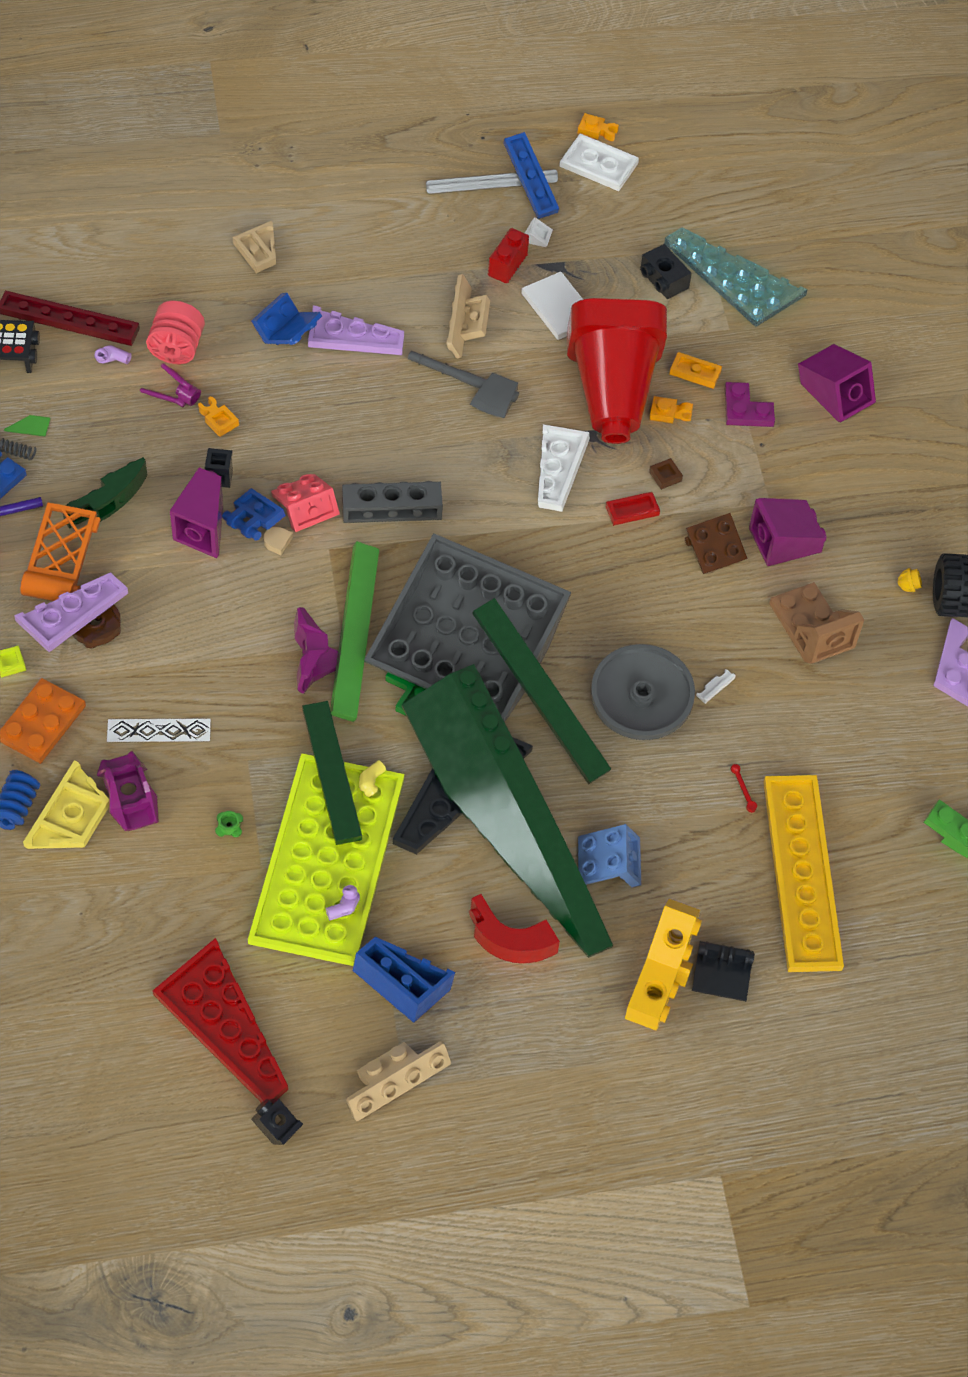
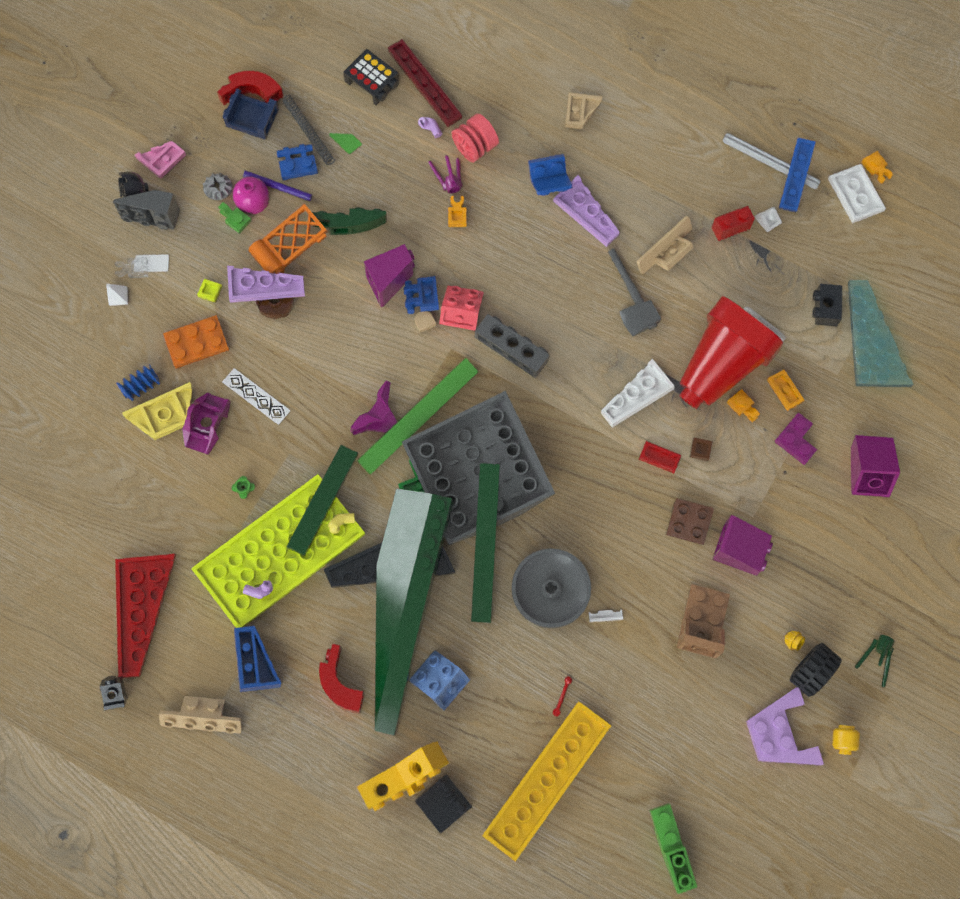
camera: 40 degrees right, 15 degrees up
(221, 463) = (425, 249): black brick -> none
(552, 302) = (738, 279): white tile -> none

